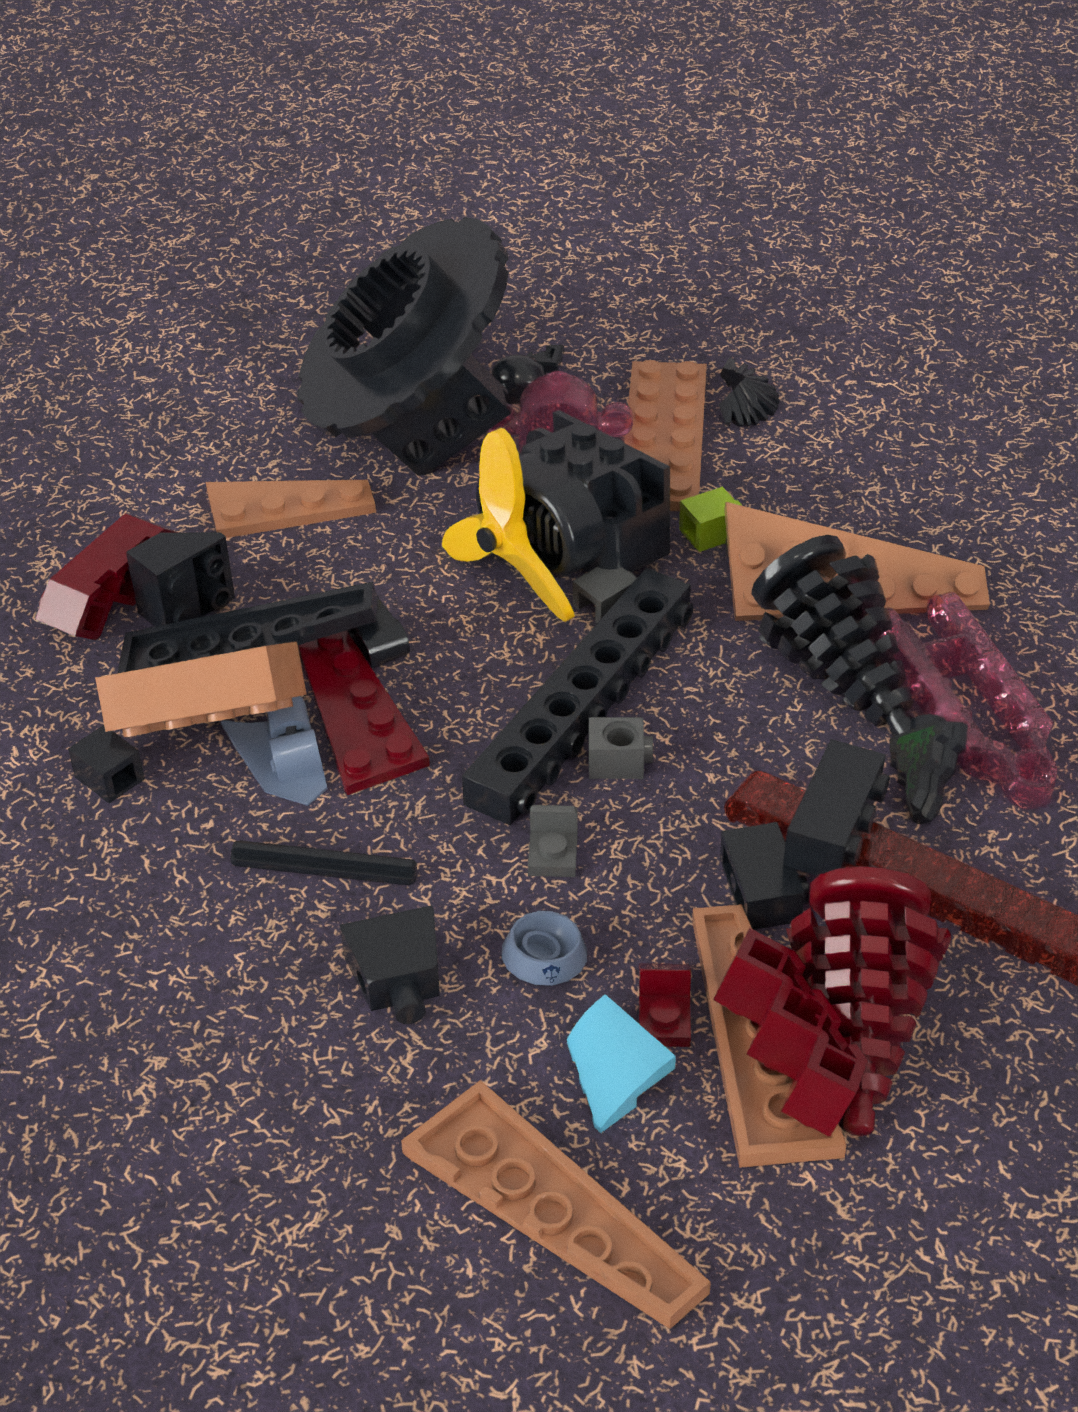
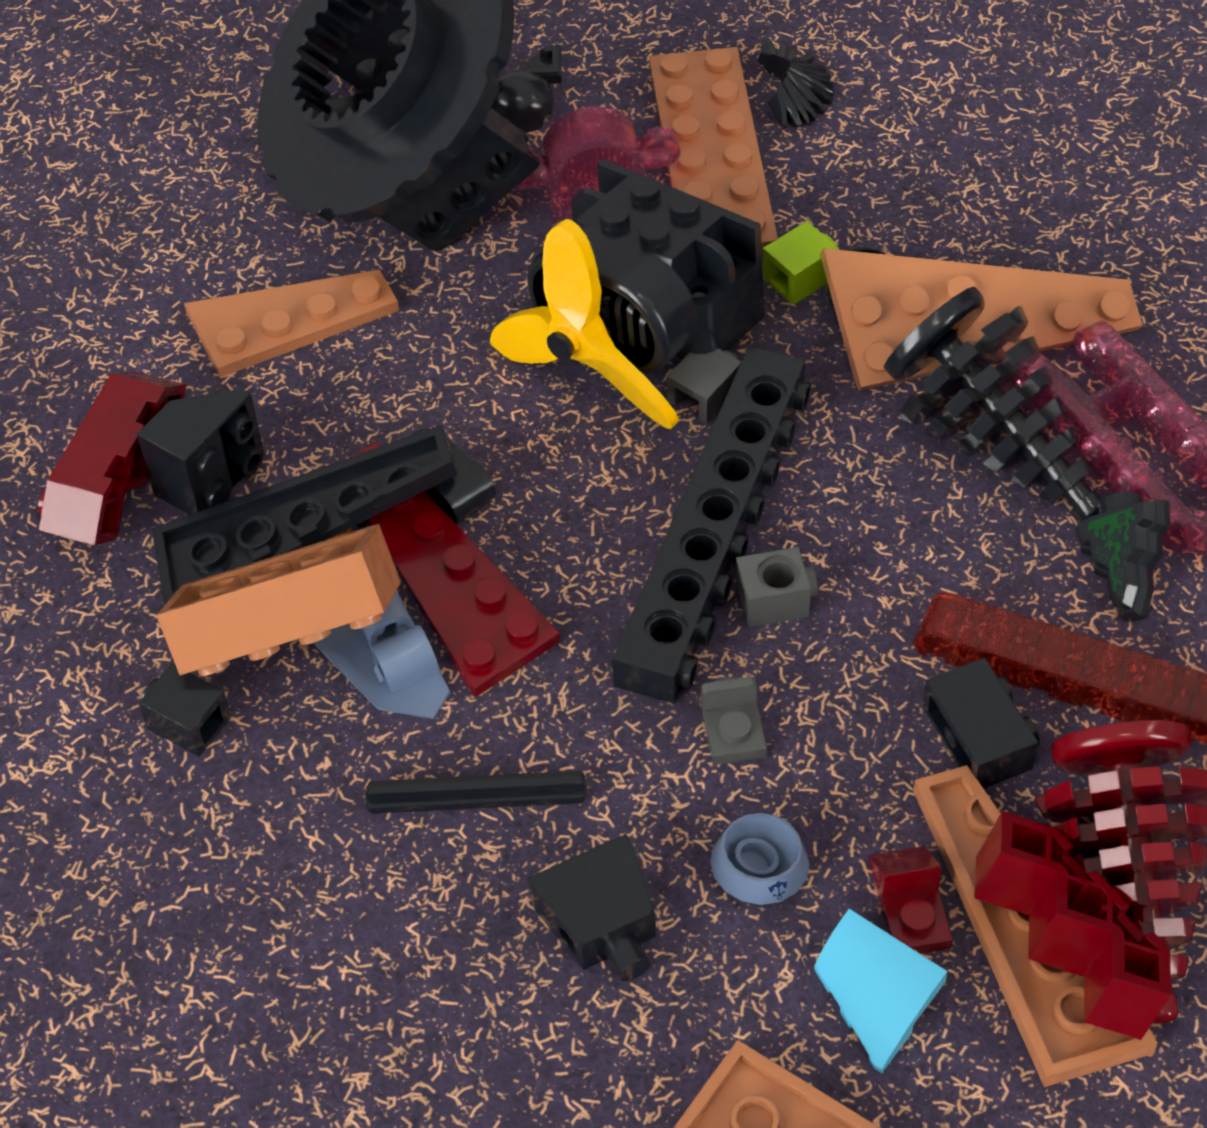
camera: 10 degrees left, 10 degrees up
(836, 809) = (1053, 636): black brick -> none

